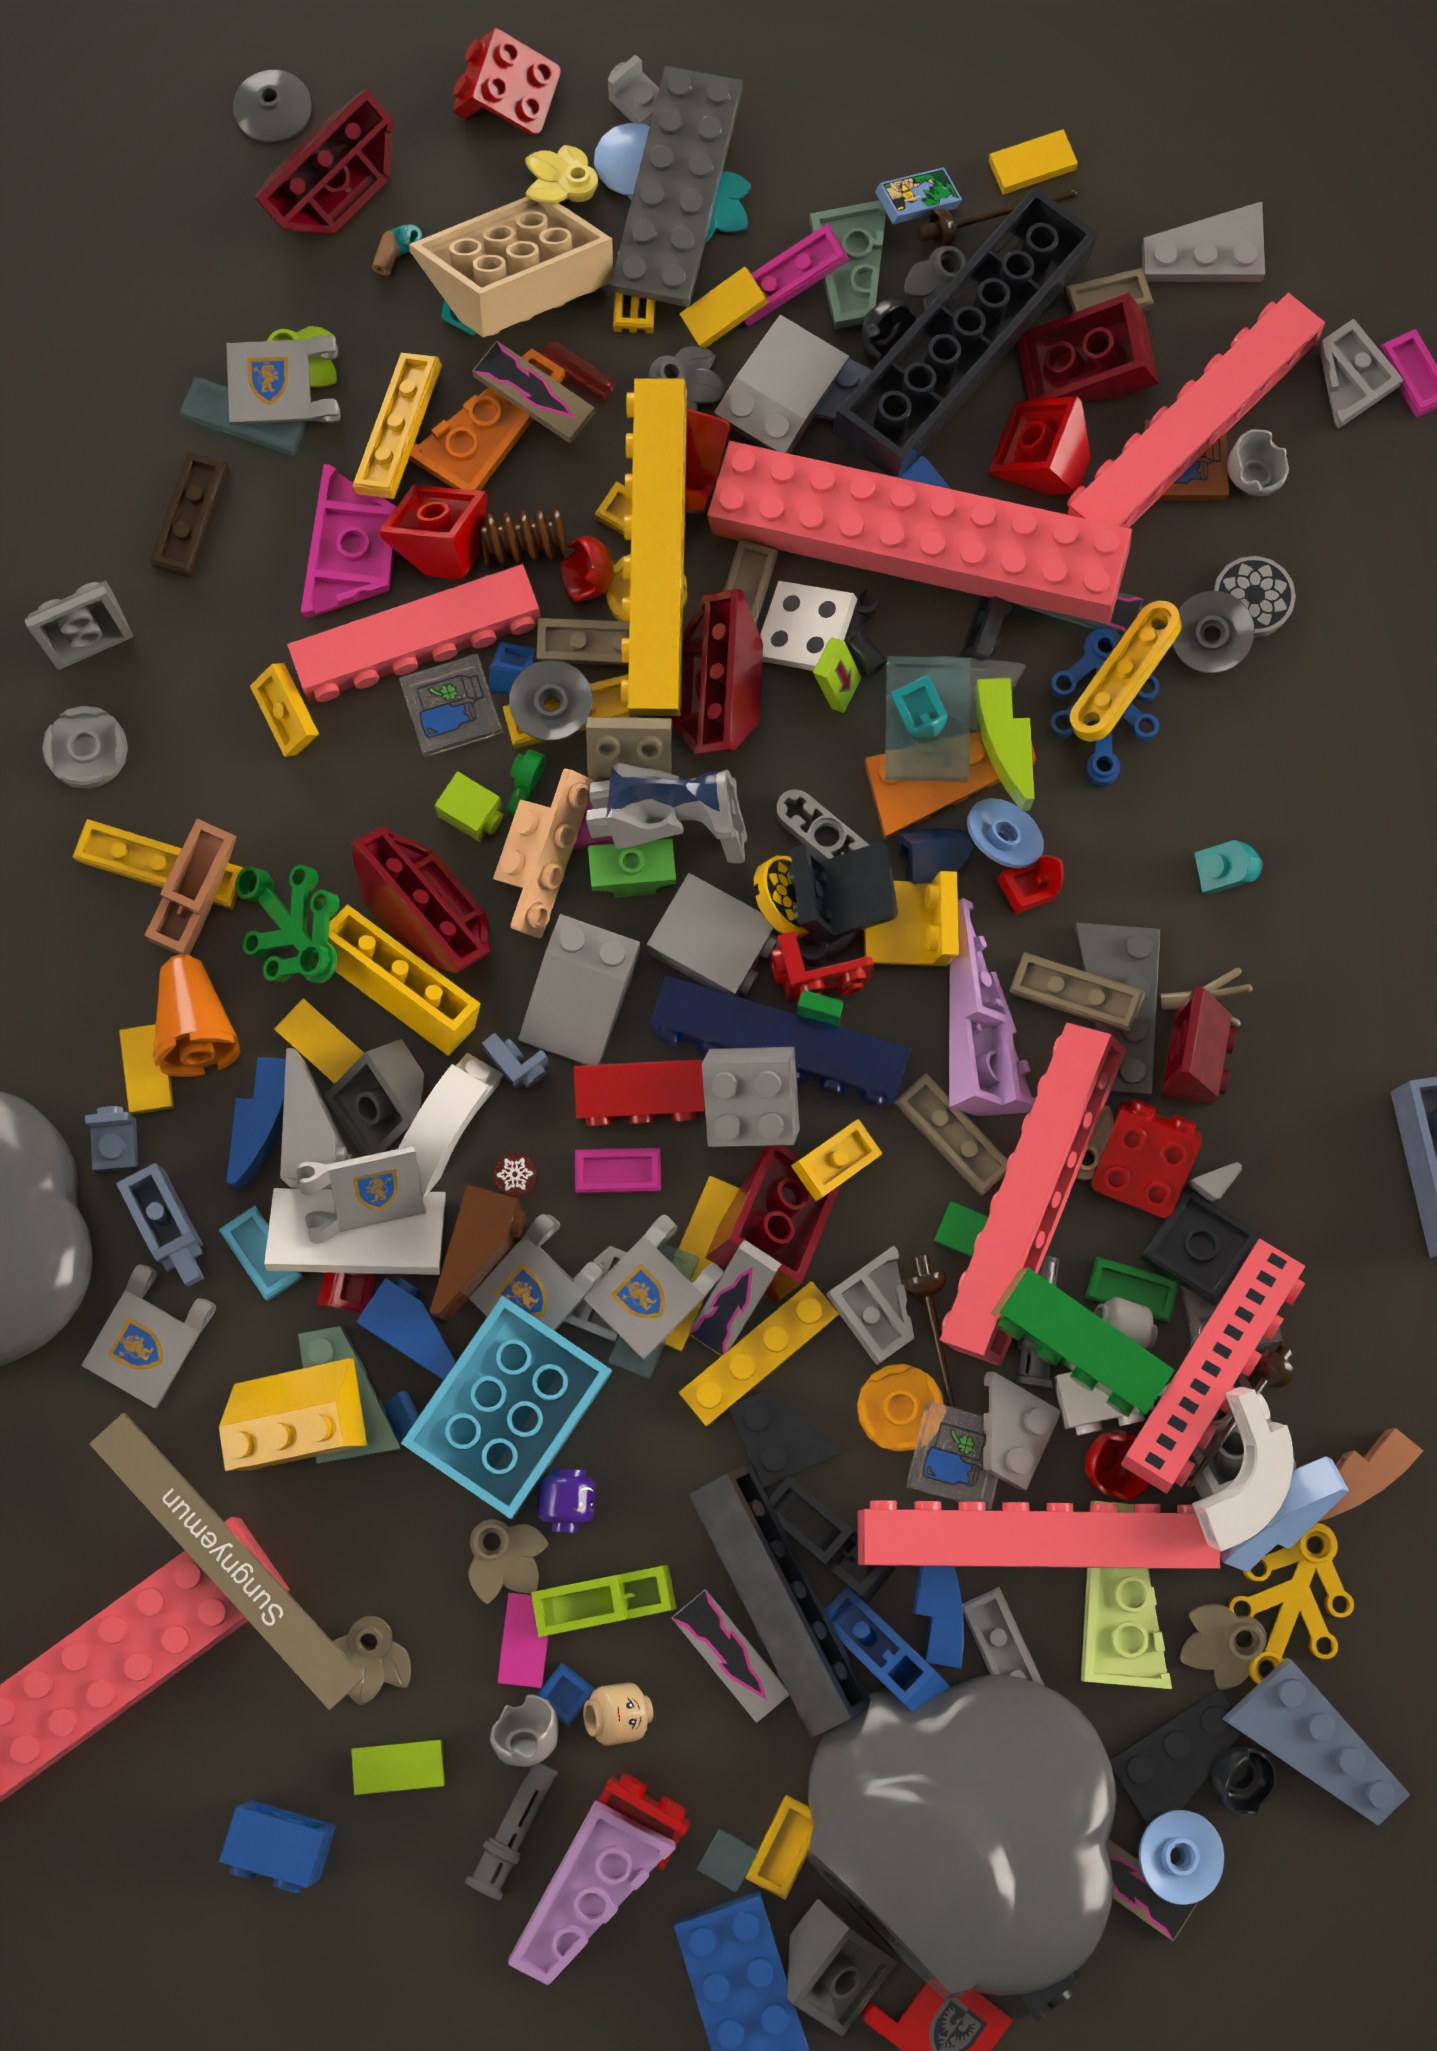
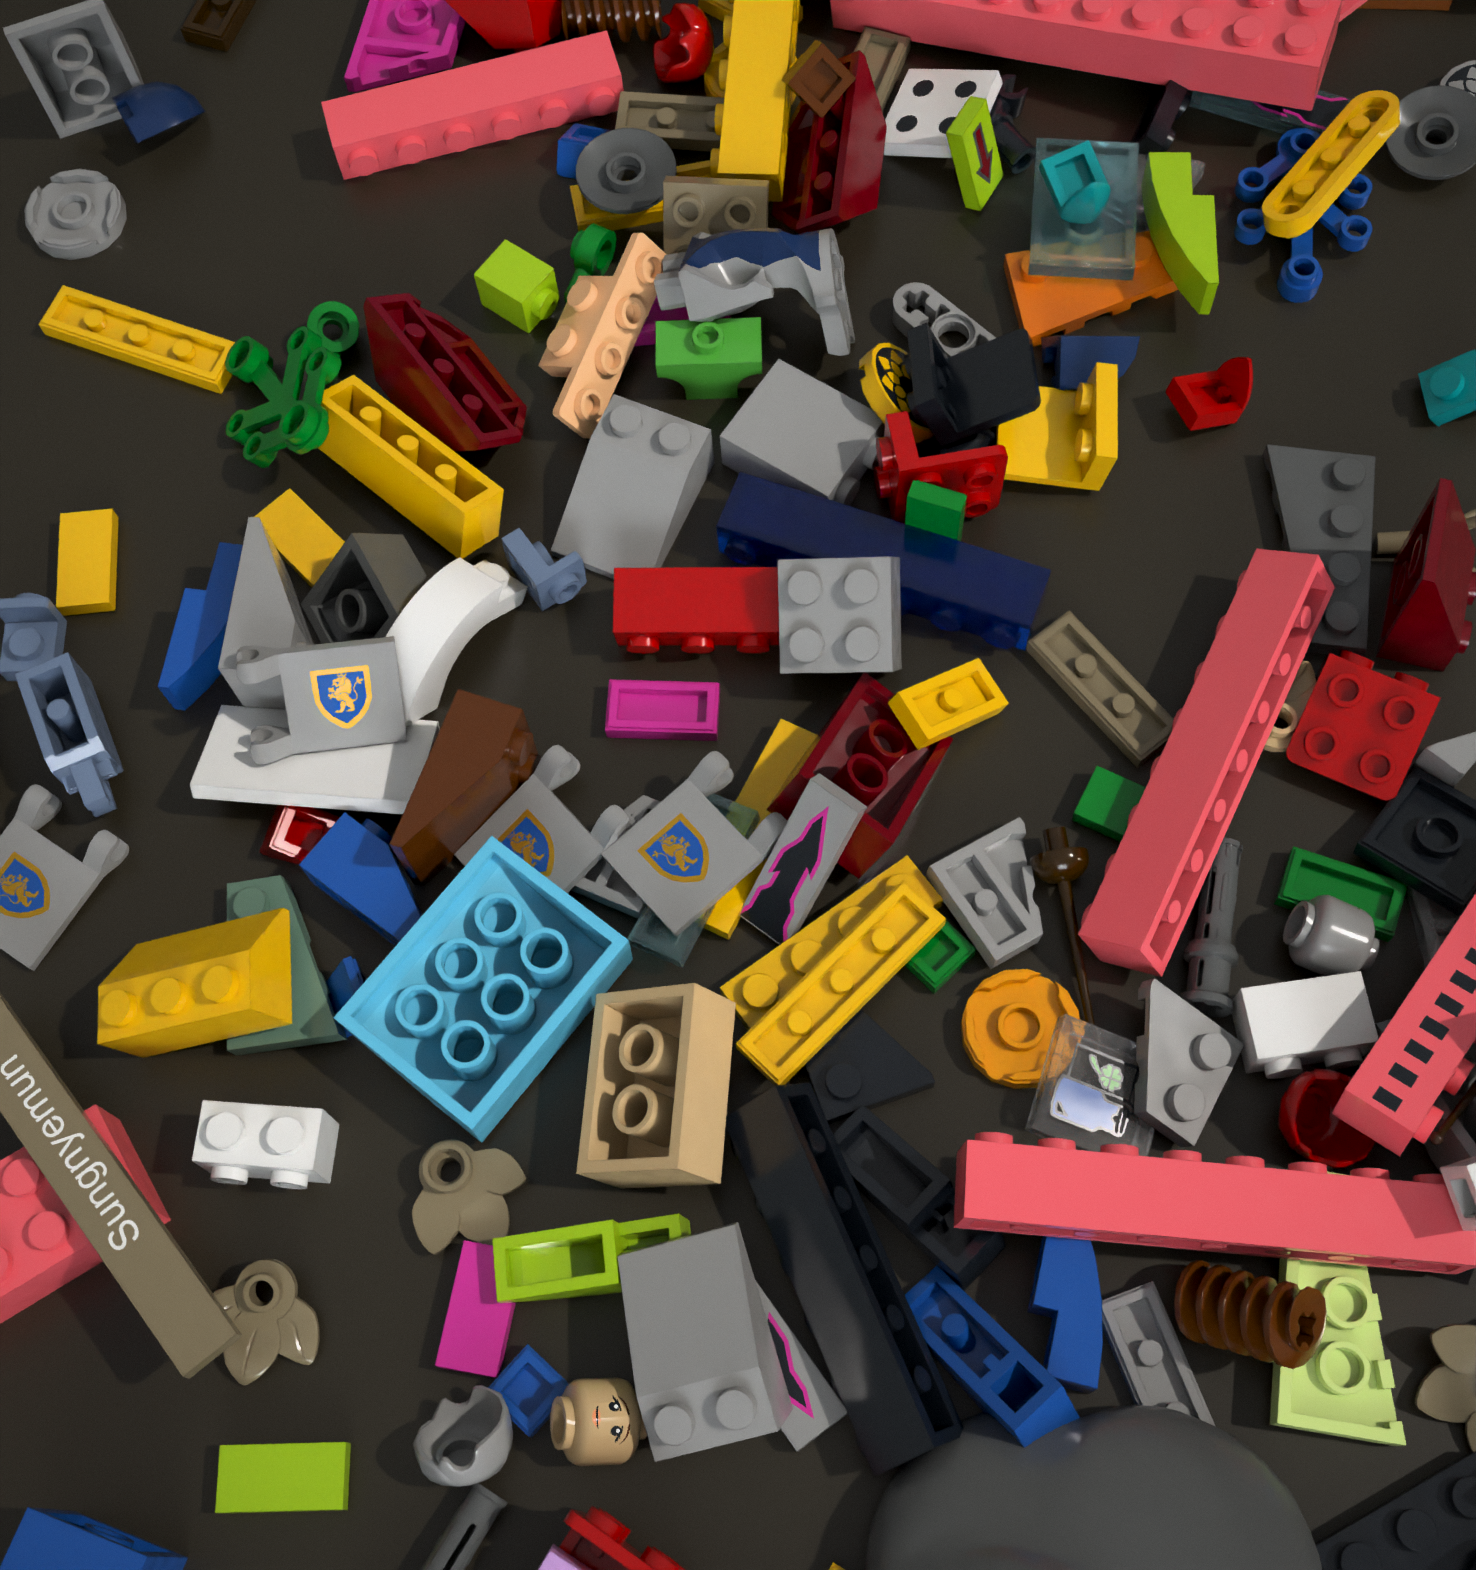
camera: 10 degrees right, 10 degrees down
(143, 648) = (155, 108): none -> dark blue brick
(191, 888) = (168, 356): nougat slope -> none
(191, 1021) = (145, 507): orange cone -> none
(248, 1240) = (175, 766): medium azure tile -> none
(284, 709) = (311, 178): yellow plate -> none
(330, 863) = (340, 315): none -> green plate
(356, 1532) = (265, 1143): none -> white brick
(450, 705) = (509, 185): clear tile -> none
(515, 1175) = (537, 702): clear red tile -> none
(566, 1499) = (550, 1116): dark purple head -> none
(640, 1476) = (657, 1087): none -> tan brick
(685, 1657) = (700, 1344): none -> light grey slope
(705, 620) = (818, 78): none -> reddish brown tile
(768, 1387) = (840, 984): none -> yellow tile
(834, 1352) = (941, 958): none -> green tile
(982, 1054) = (1142, 572): lavender wedge -> none
(1005, 833) = (1177, 339): medium blue dish -> none
(1063, 1609) = (1249, 1314): none -> reddish brown piece
(1077, 992) = (1268, 521): dark tan tile -> none
(1082, 1342) = (1281, 938): green brick -> none

